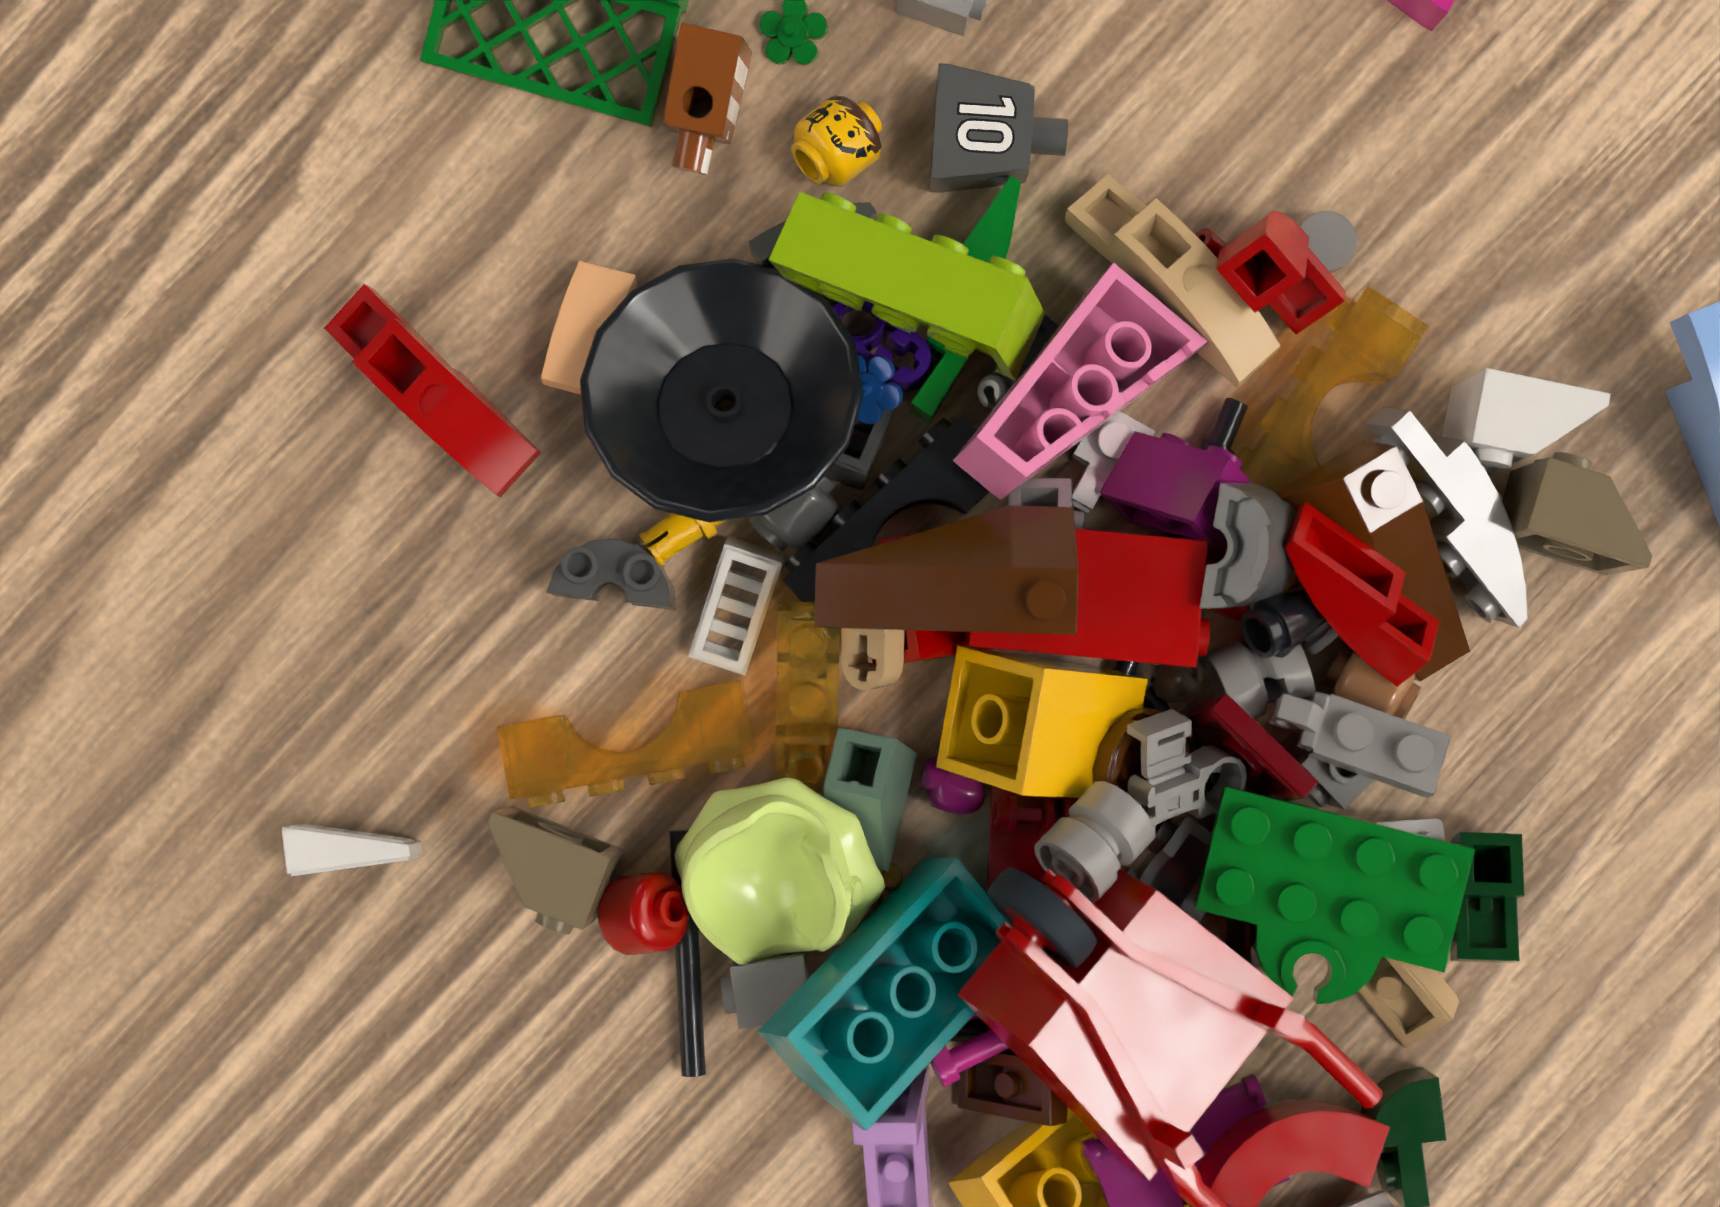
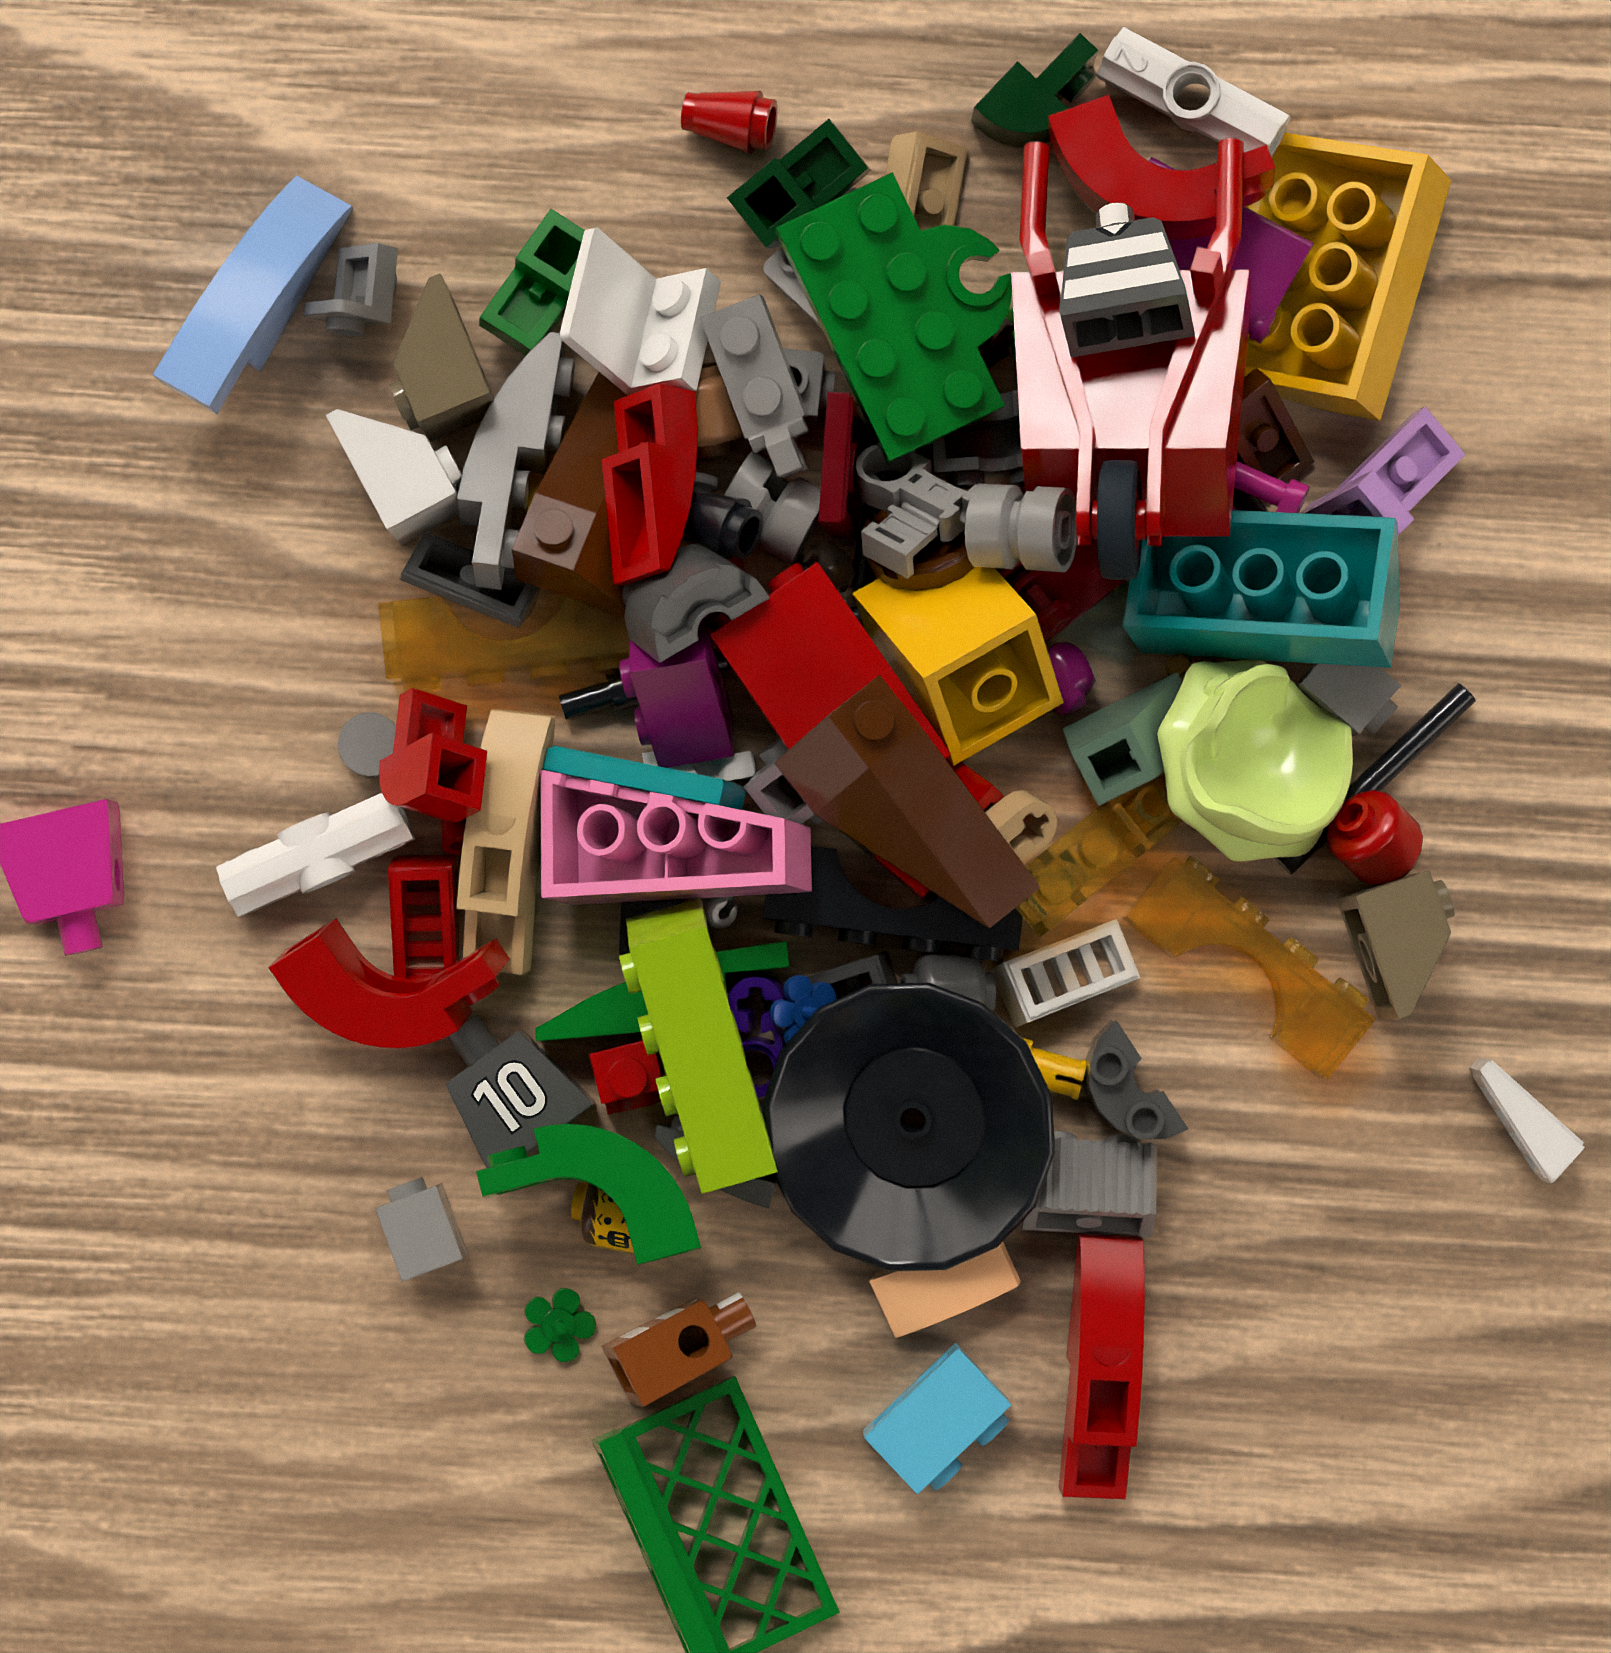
camera: 130 degrees left, 0 degrees up
(494, 241) = (938, 1420): none -> medium azure brick
(563, 494) = (1098, 1187): none -> light grey brick
(864, 153) = (634, 1179): none -> green arch
(934, 213) = (626, 1077): none -> red brick
(1137, 412) = (644, 777): none -> teal tile
(1141, 78) = (377, 1009): none -> red arch
(1195, 173) = (423, 867): none -> red slope
(1220, 1070) = (1122, 285): none -> dark grey torso
(1280, 132) = (314, 854): none -> white piece
(1415, 389) = (448, 572): none -> dark grey slope
(1489, 685) = (633, 324): none -> white bracket
(1563, 648) = (538, 286): none -> green brick
(1573, 891) = (732, 118): none -> red cone
(1667, 510) = (362, 290): none -> light grey bracket

